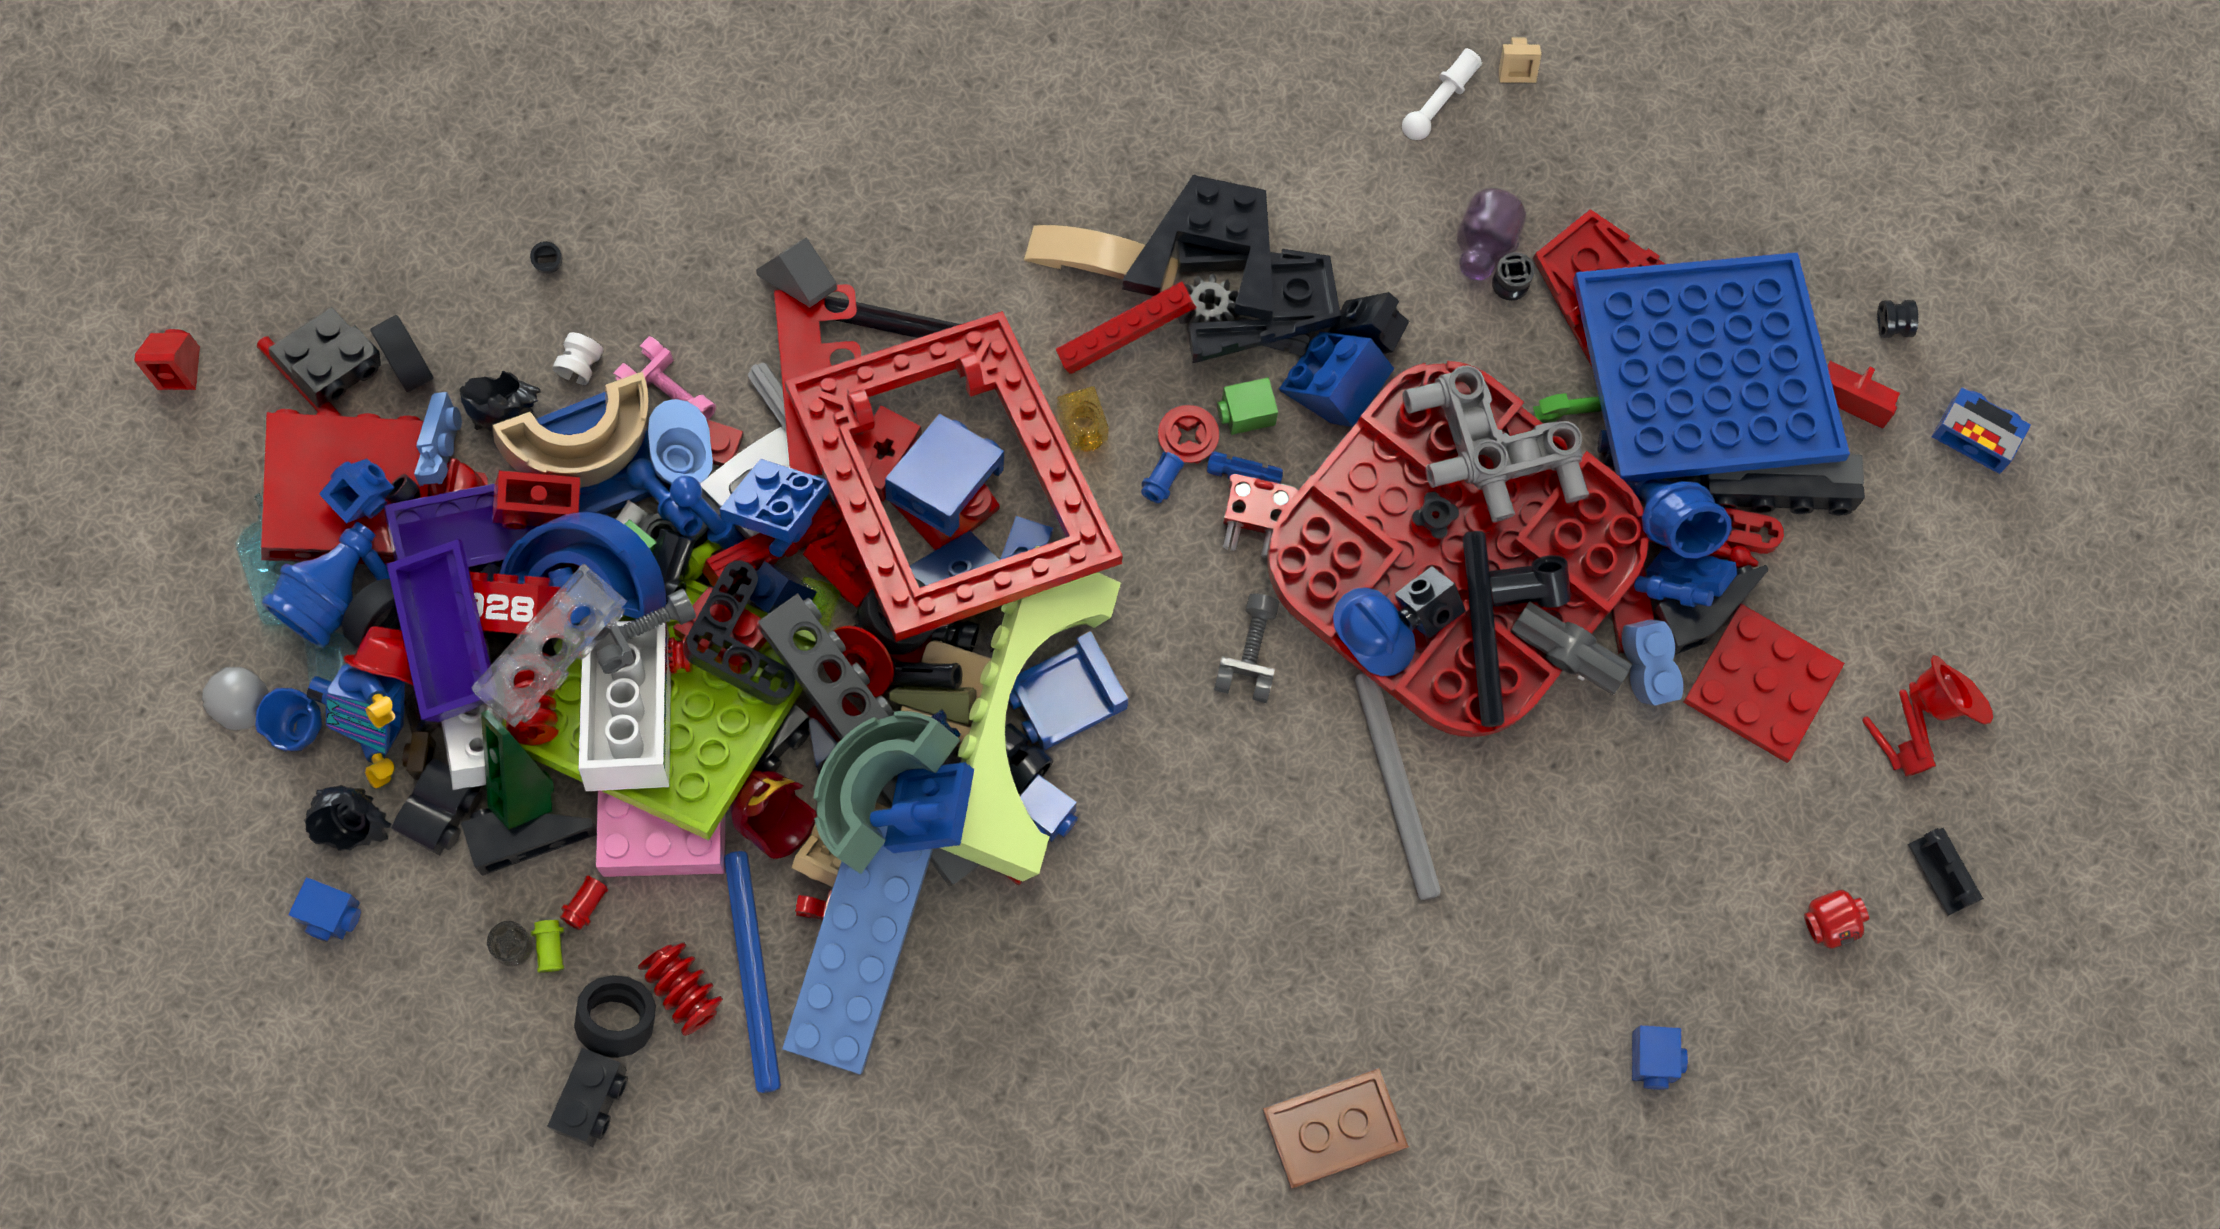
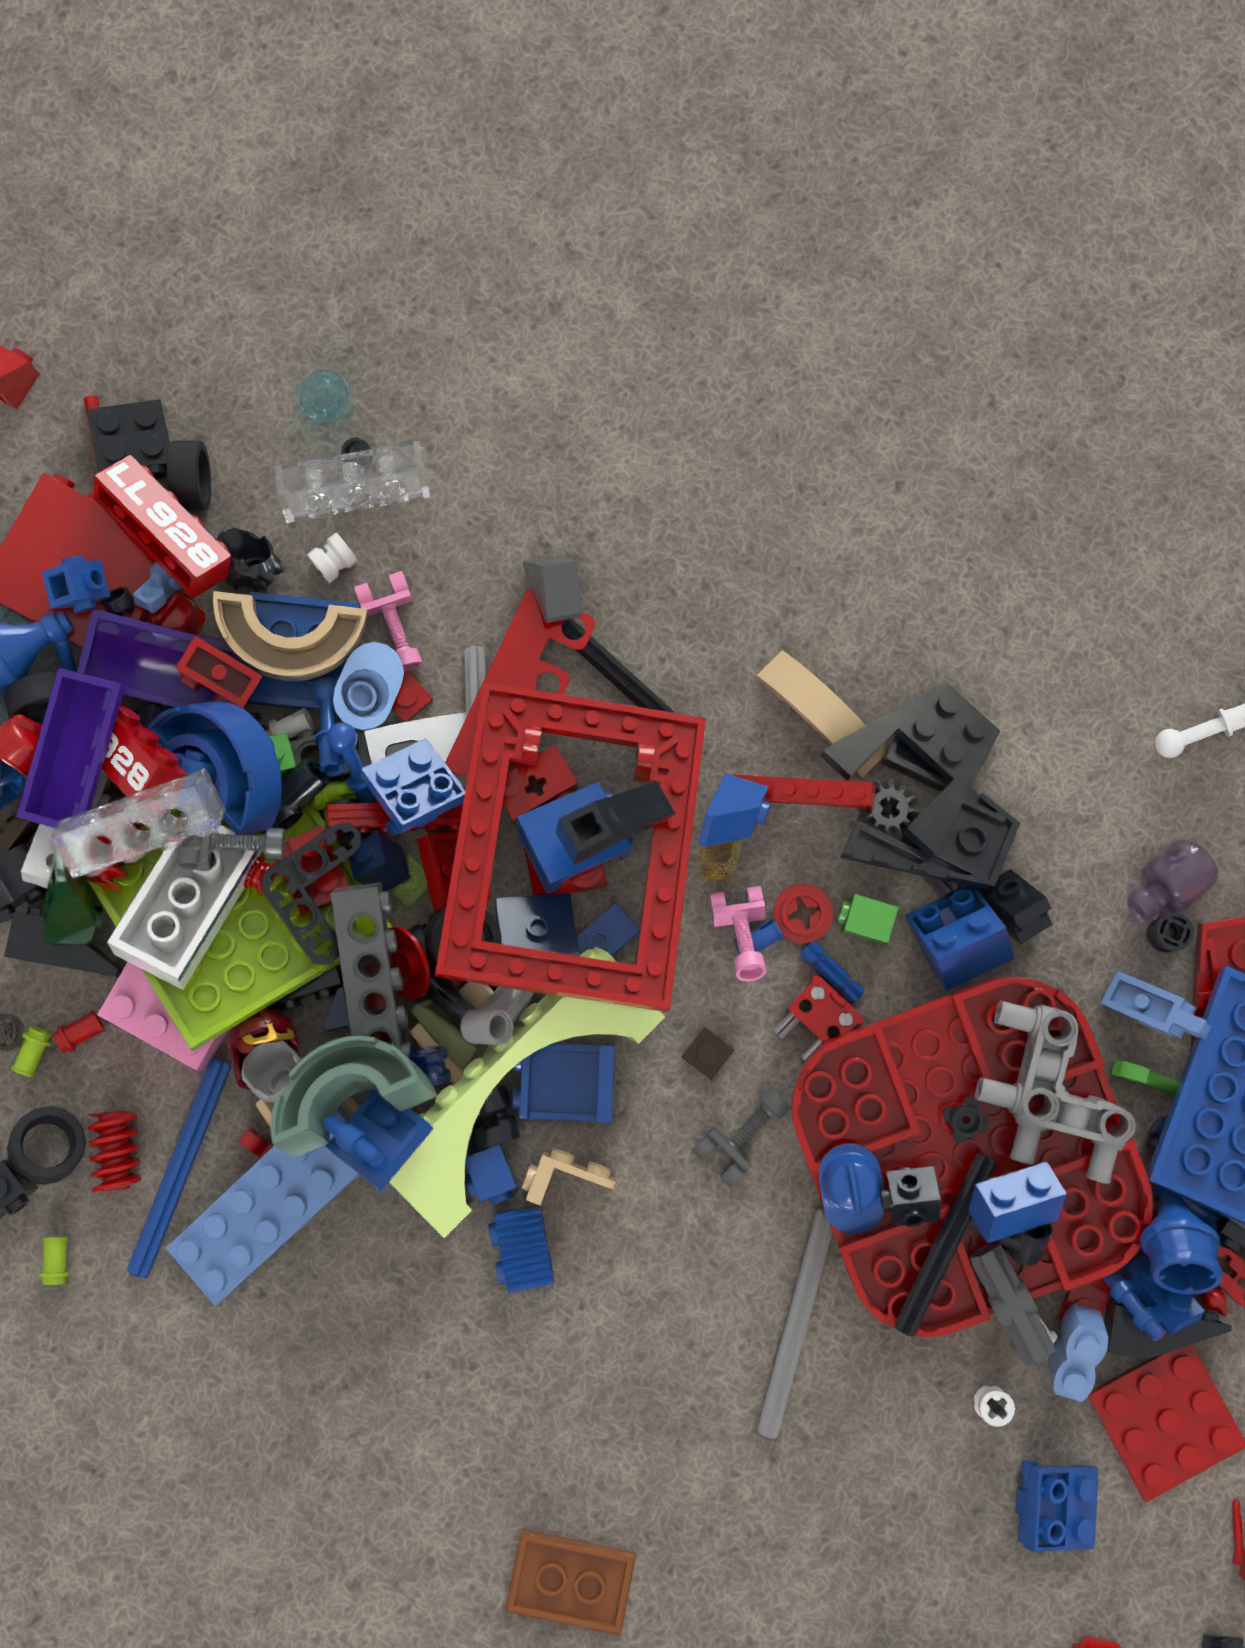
camera: 35 degrees right, 10 degrees up
(406, 402) = (162, 526): none -> brick
(488, 225) = (325, 397): none -> clear light blue hat
(558, 281) = (352, 481): none -> clear brick
(682, 1122) = (54, 1261): none -> lime pin
(790, 823) = (268, 1069): none -> light grey hair
(970, 653) = (495, 1018): none -> light grey piece
(972, 429) = (612, 821): none -> black slope
(1077, 371) = (734, 811): none -> blue slope
(1110, 756) = (539, 1177): none -> tan bracket
(1114, 858) = (522, 1248): none -> blue brick
(1167, 491) = (749, 964): none -> bright pink bar
(1177, 600) = (707, 1053): none -> dark brown plate
(1520, 548) = (1017, 1202): none -> blue brick
(1537, 341) = (1153, 1007): none -> medium blue hinge
(1621, 748) = (1006, 1403): none -> white bush
(1716, 805) = (1057, 1506): none -> blue plate

